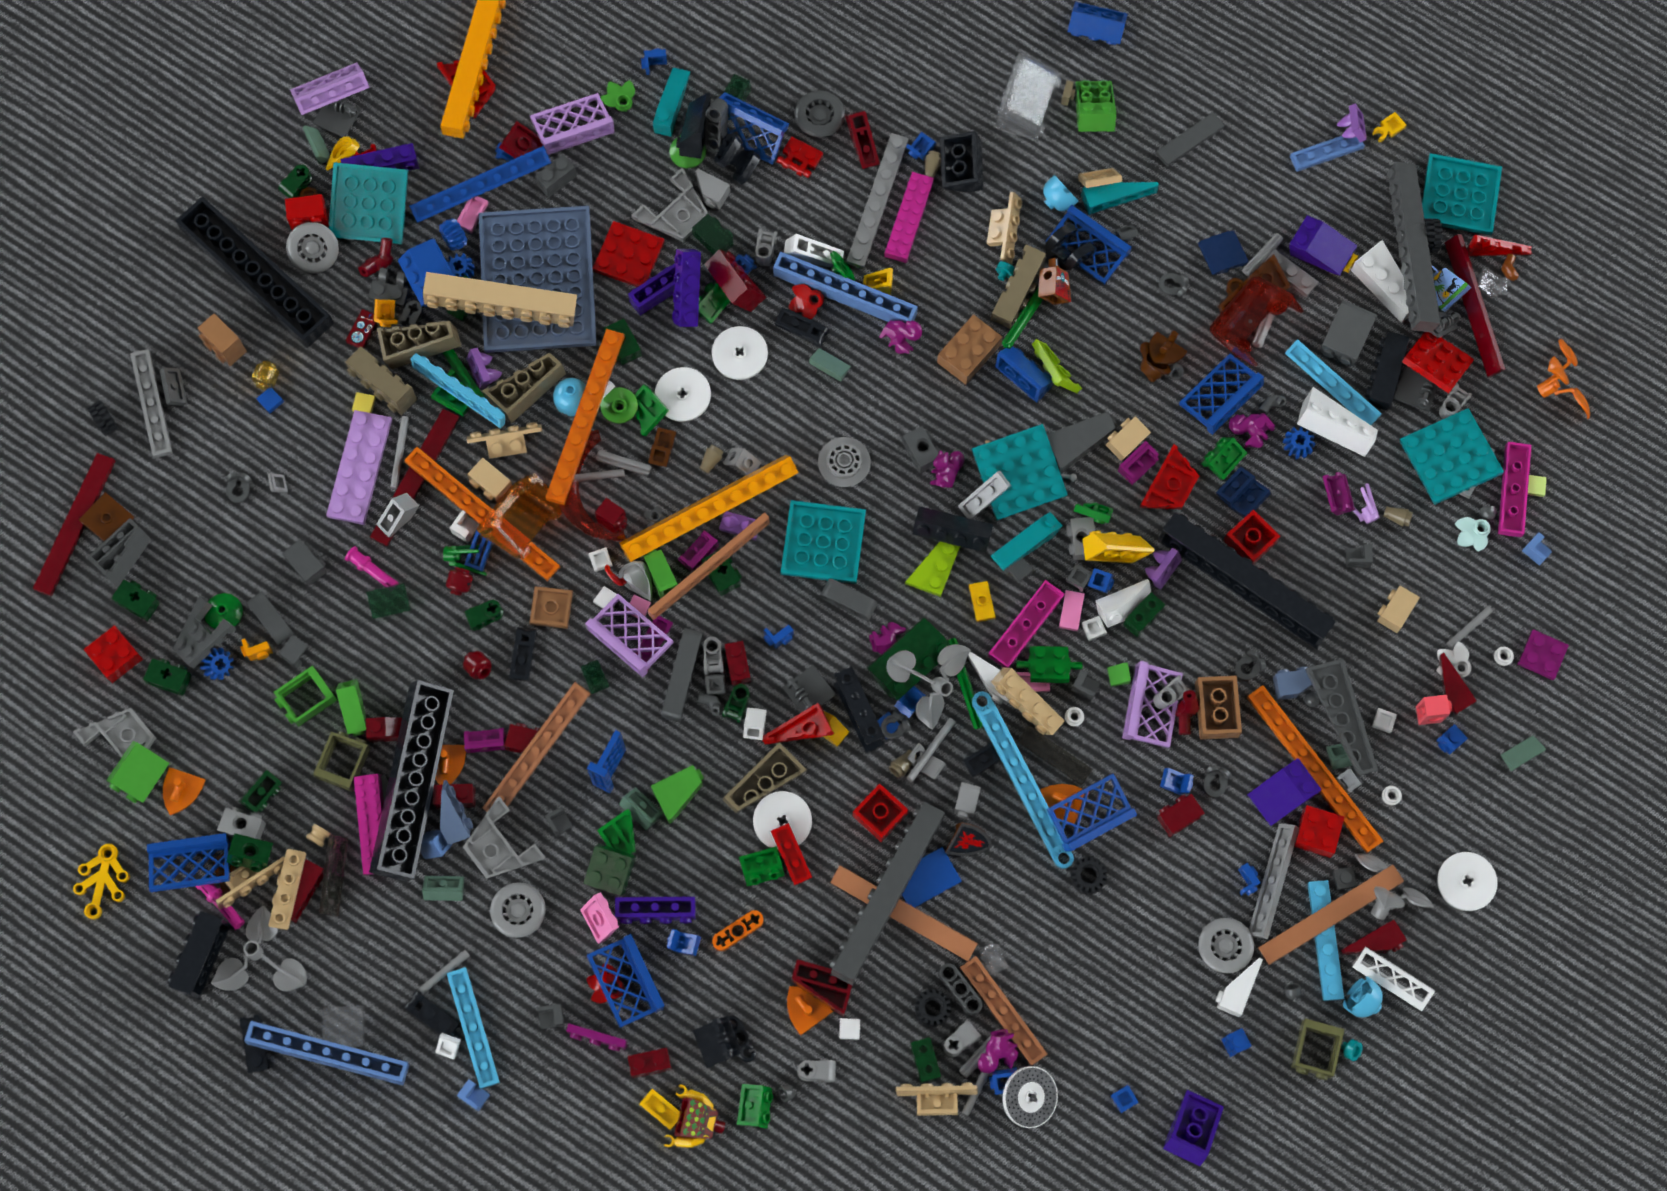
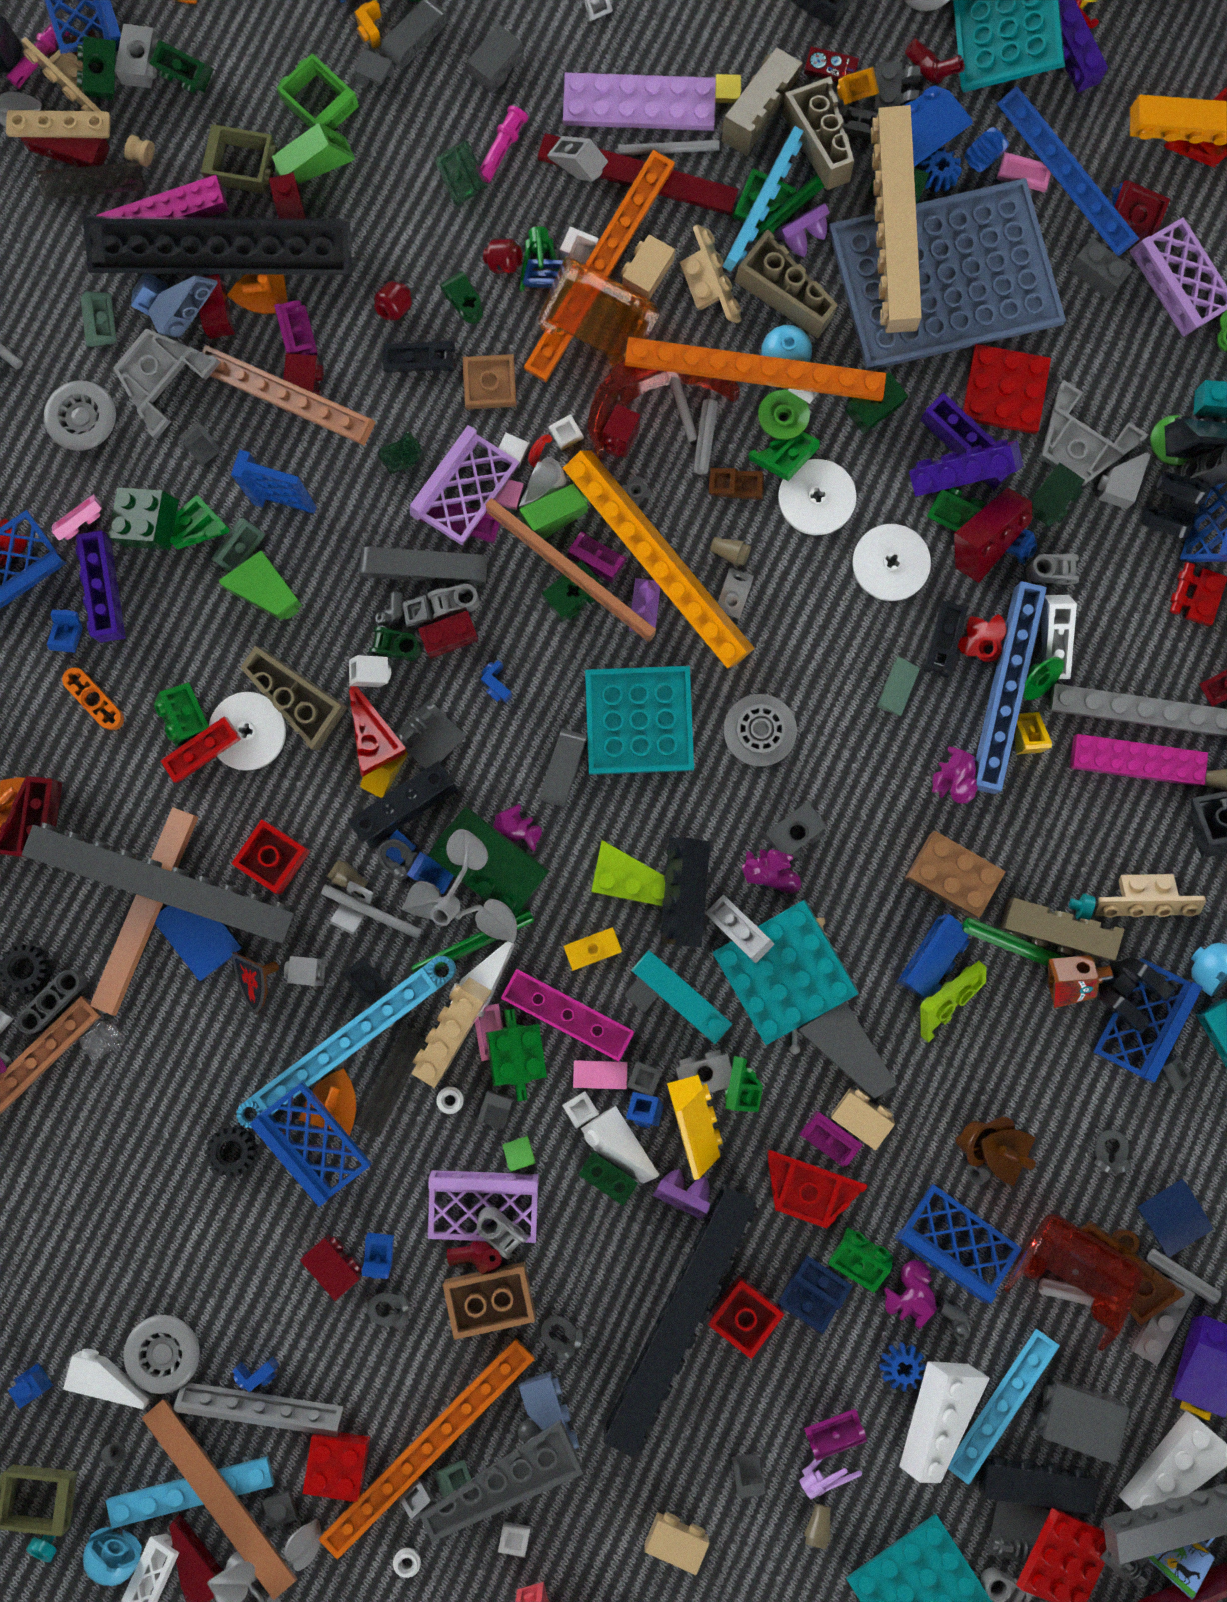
camera: 80 degrees right, 10 degrees up
(1284, 792) = (386, 1409): dark purple slope -> none

